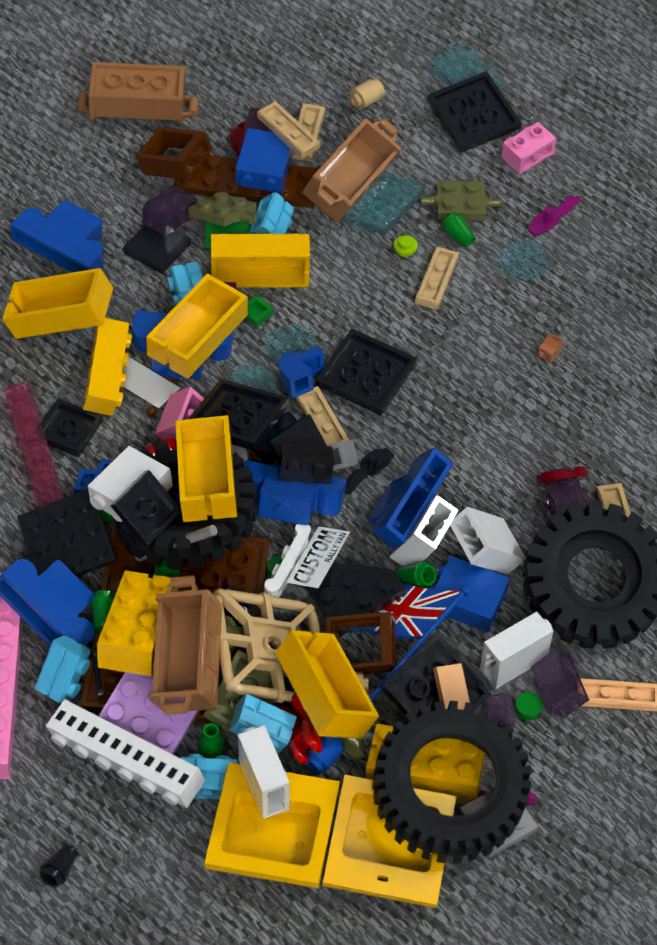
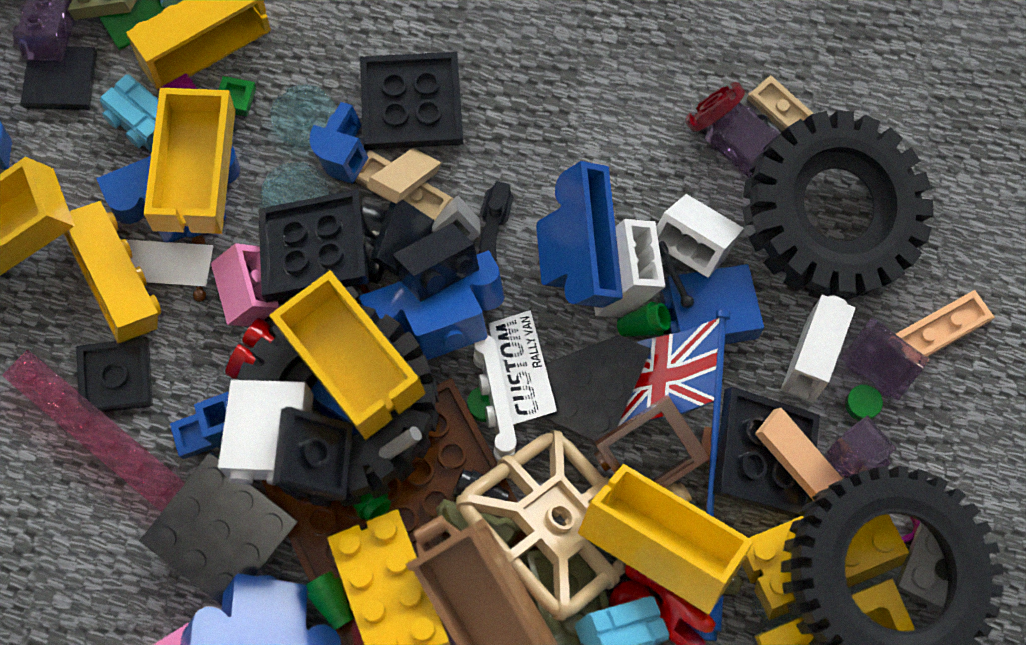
camera: 35 degrees left, 15 degrees up
(325, 407) = (403, 175): none -> tan tile
(452, 530) = (686, 300): none -> black hinge

